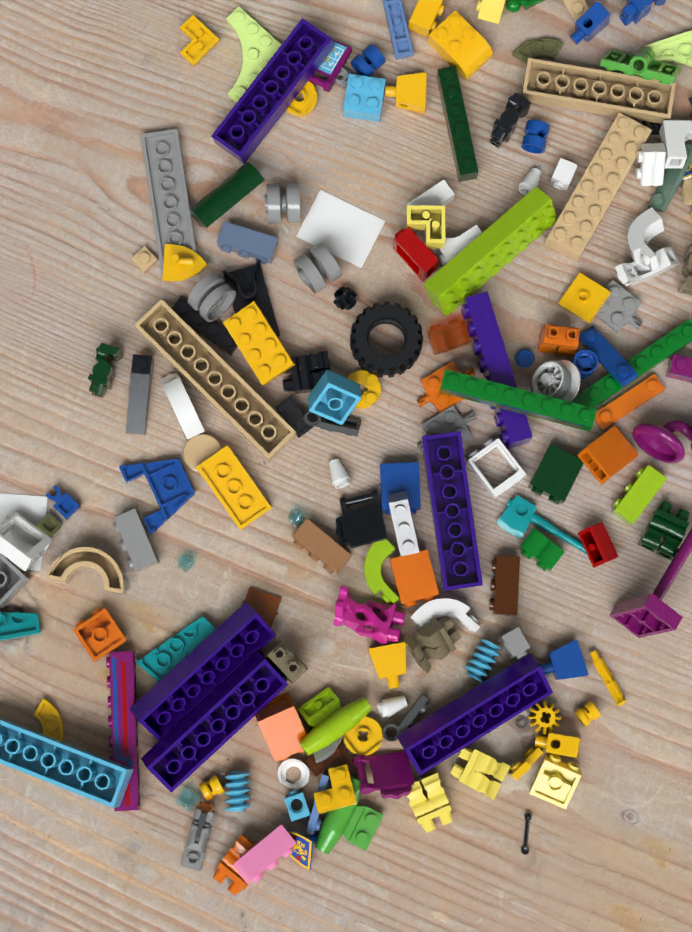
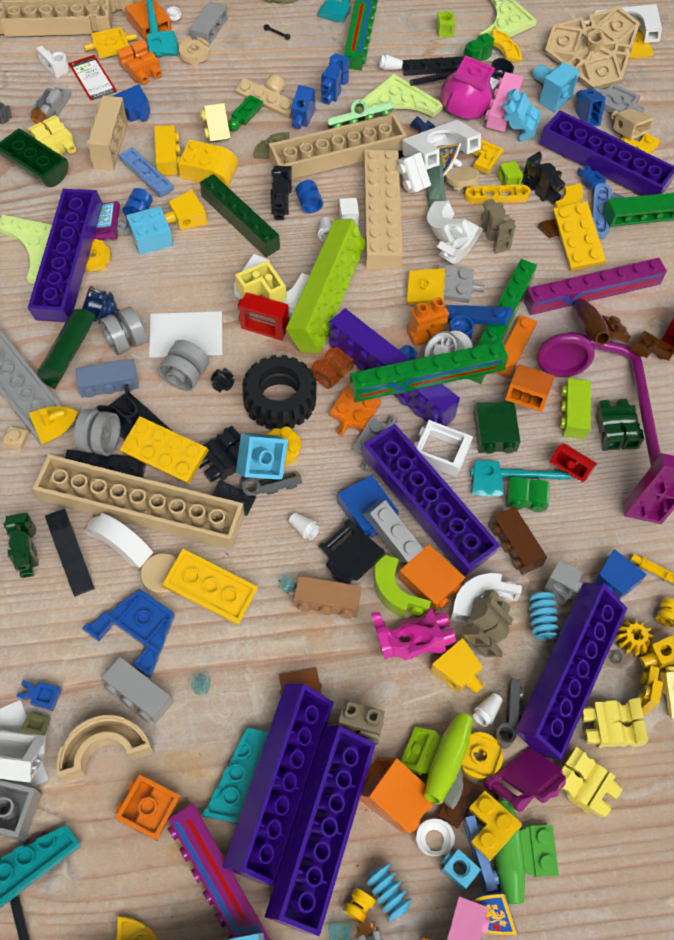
camera: 30 degrees left, 20 degrees down
(275, 162) = (100, 303): none -> dark blue helmet

